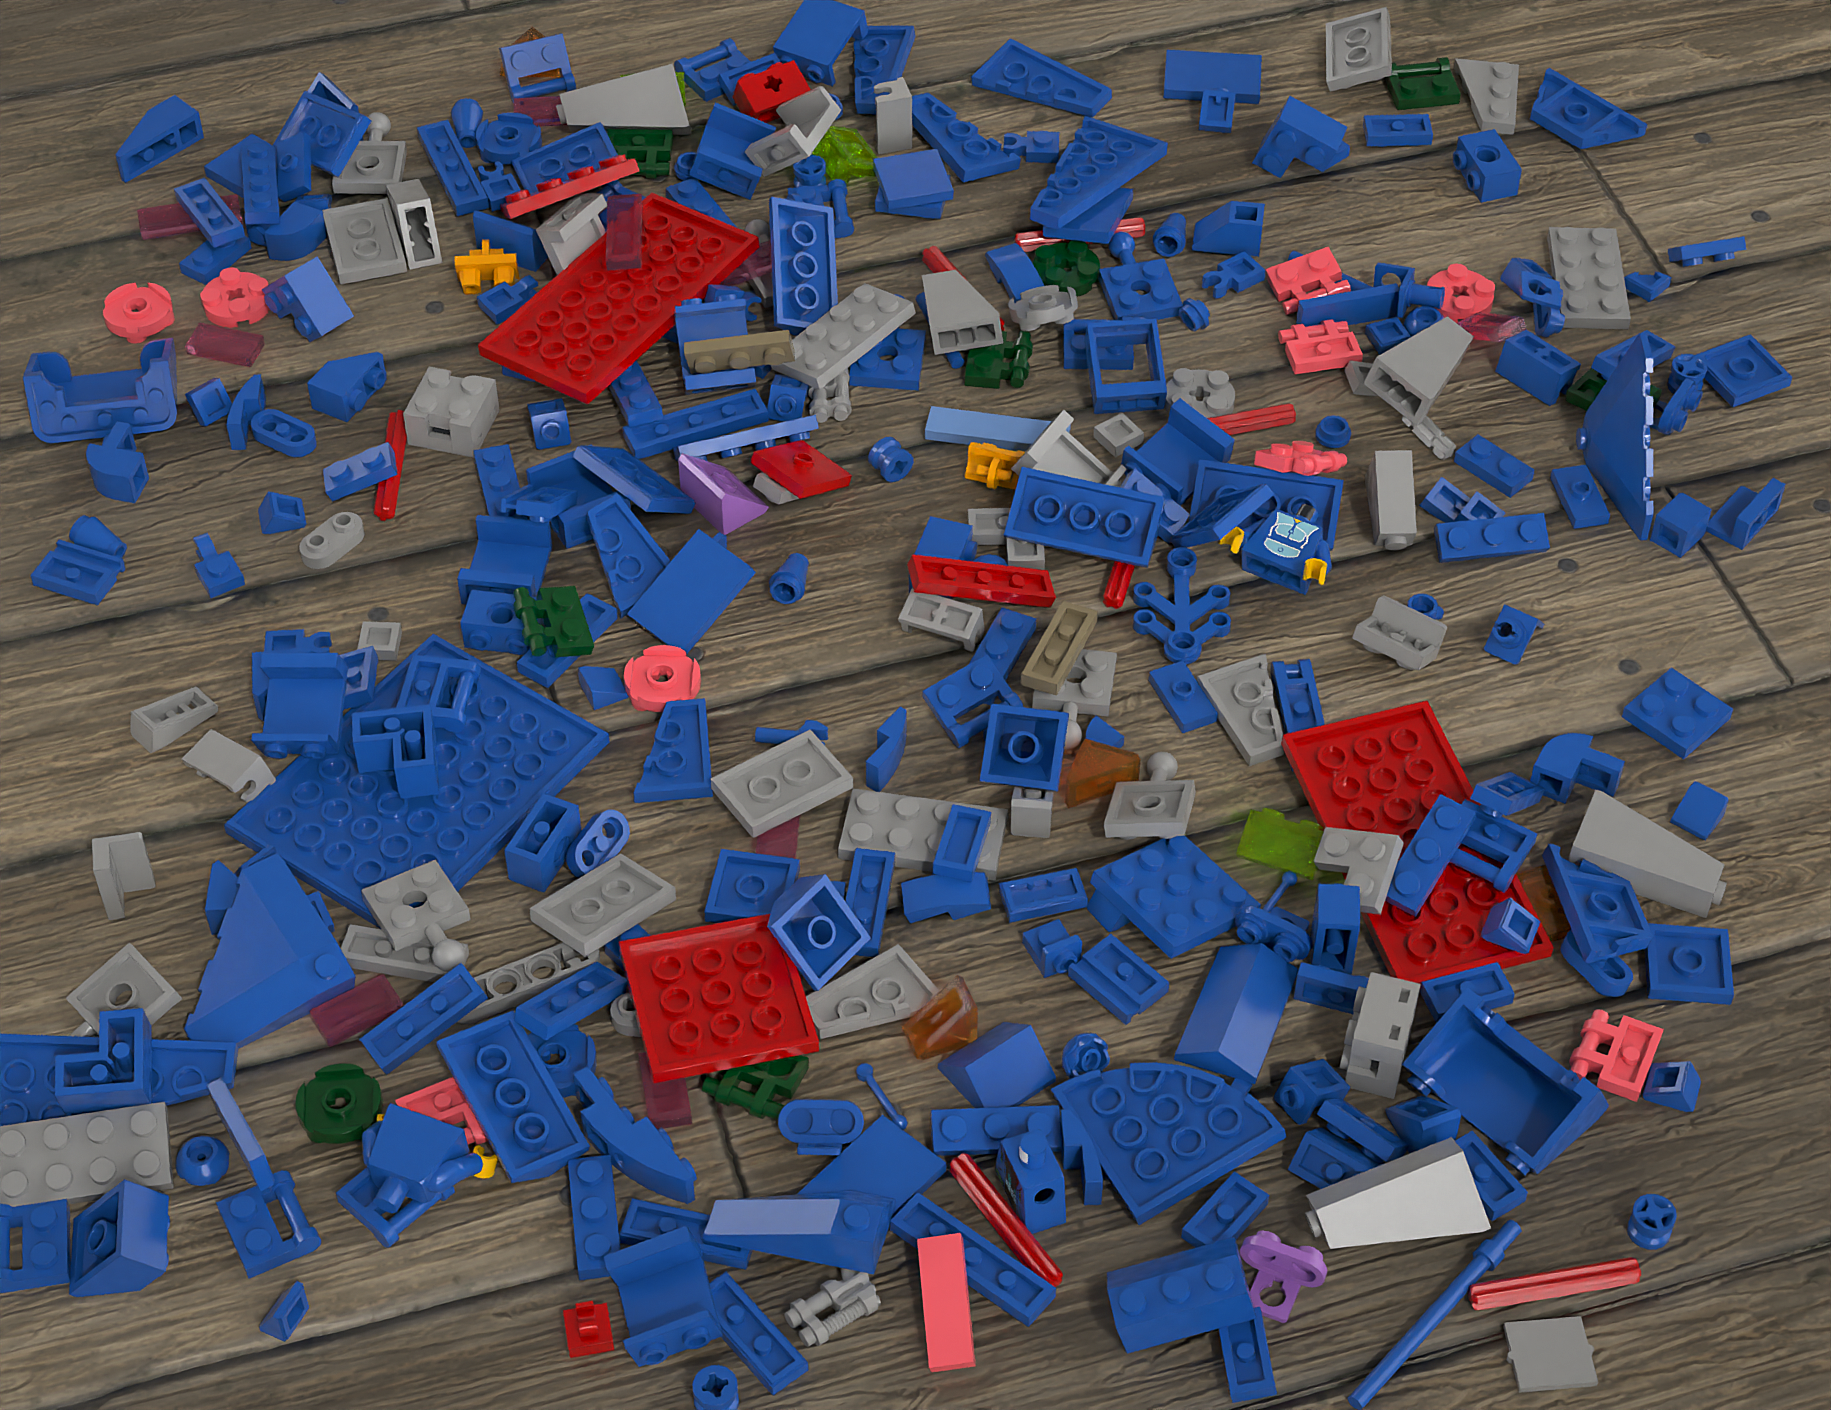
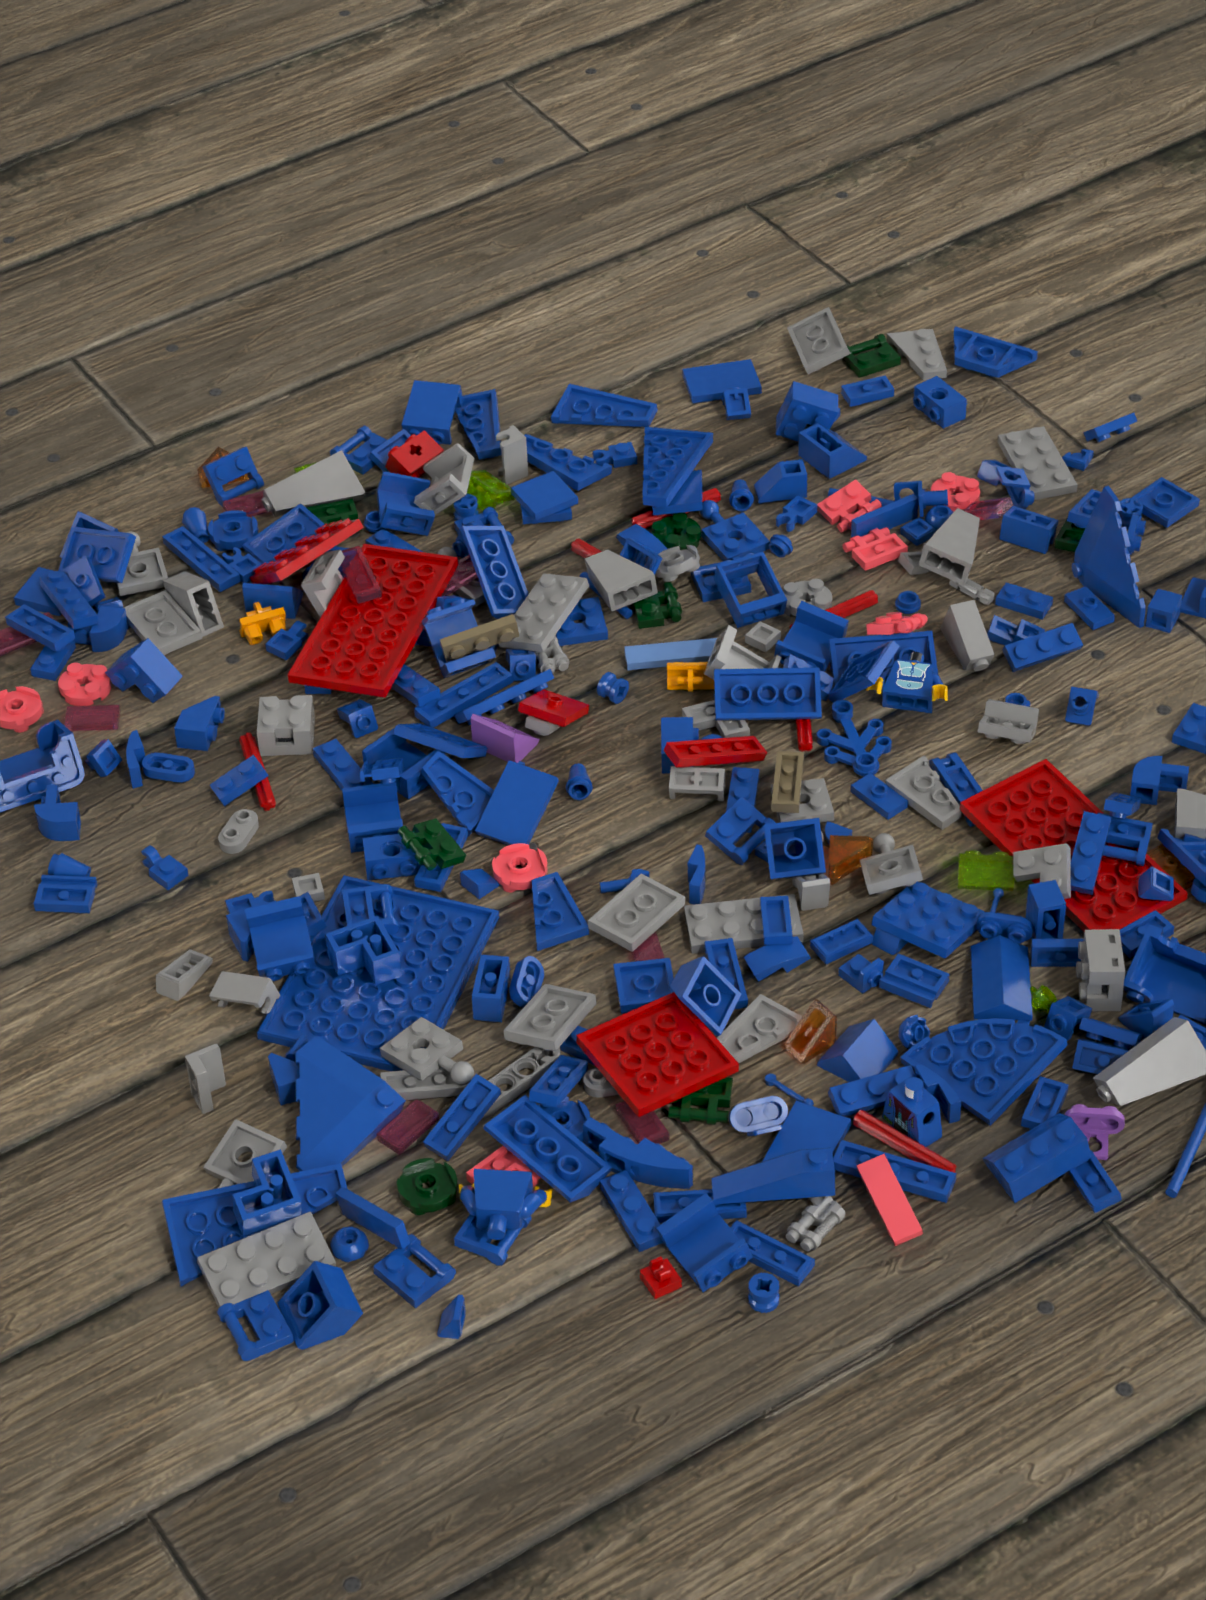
camera: 15 degrees left, 5 degrees down
(281, 513) = (191, 822): blue slope -> none
(998, 288) = (640, 553): none -> blue slope
(1285, 1052) = (1042, 998): none -> clear neon green plate
(1311, 199) = (828, 451): none -> blue slope

